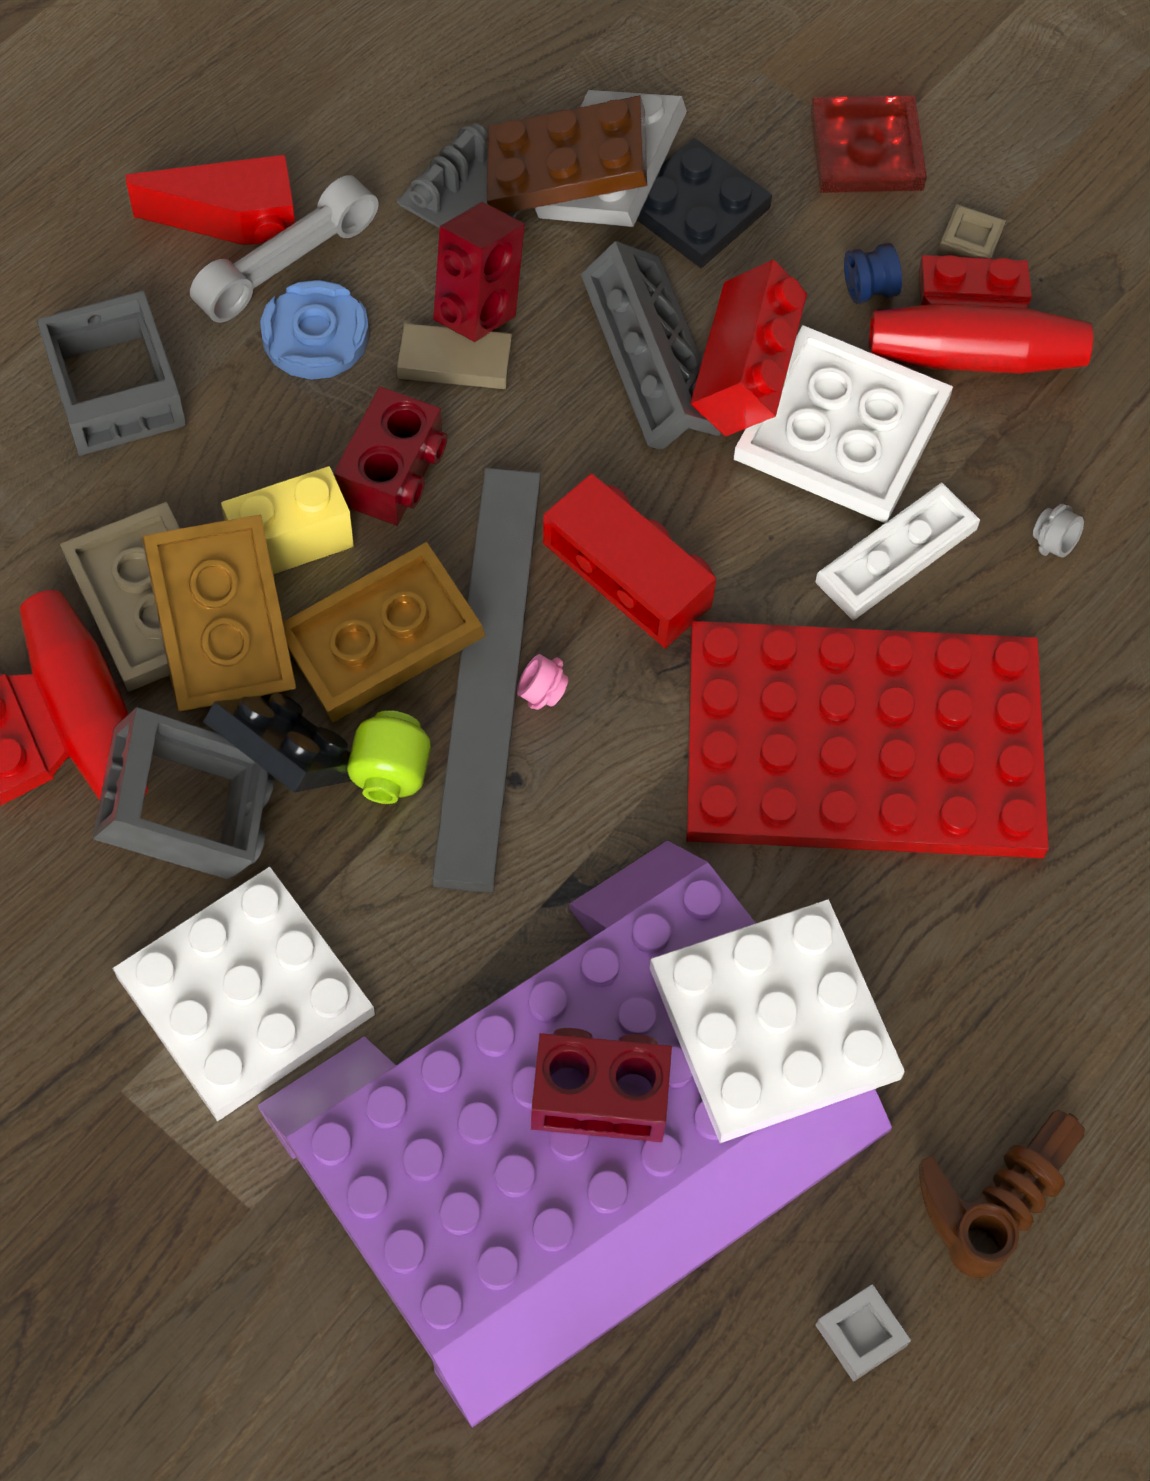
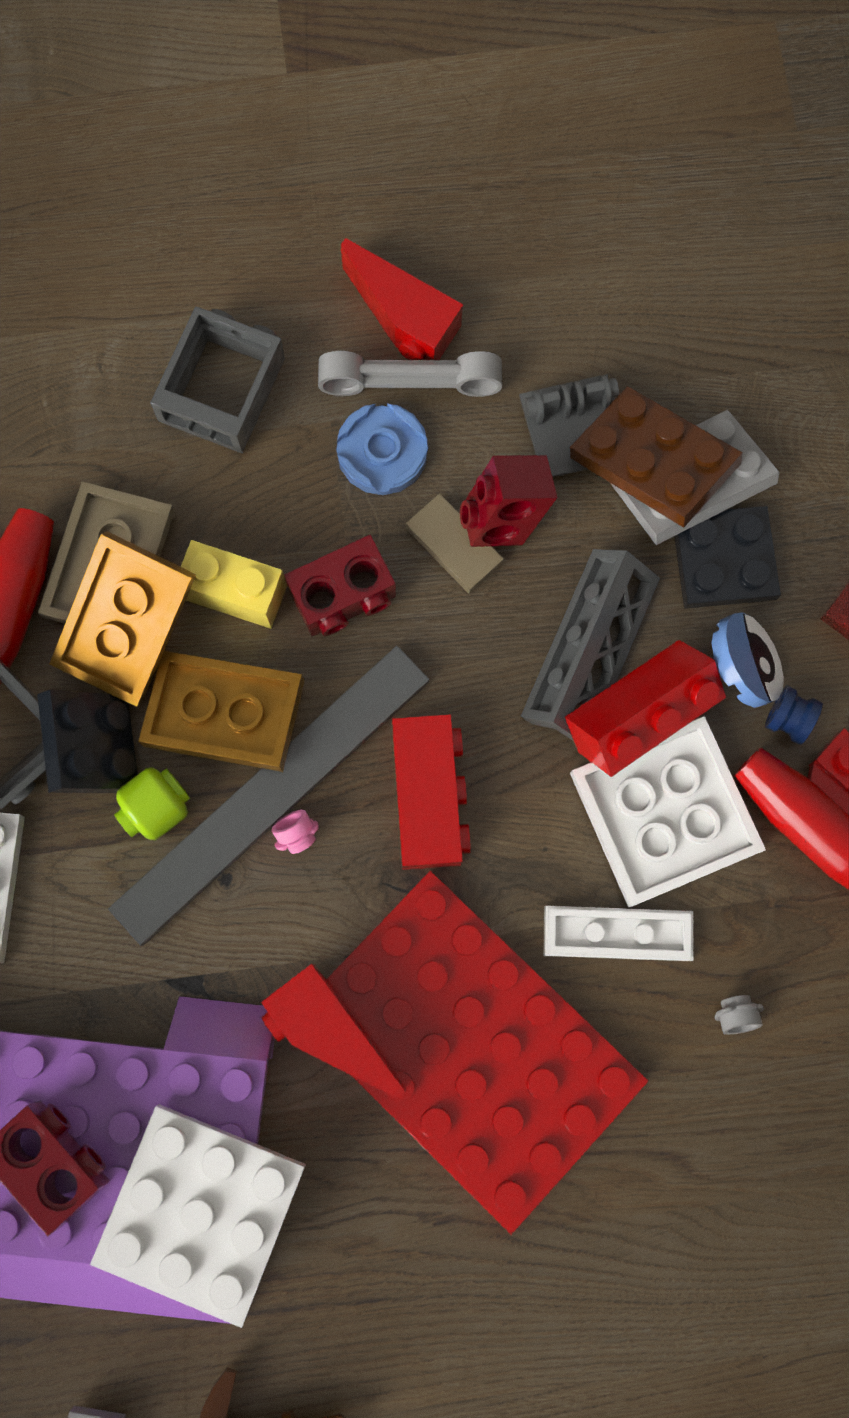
camera: 40 degrees right, 15 degrees up
(733, 796) = (321, 1025): none -> red slope
(795, 253) = (747, 659): none -> medium blue tile

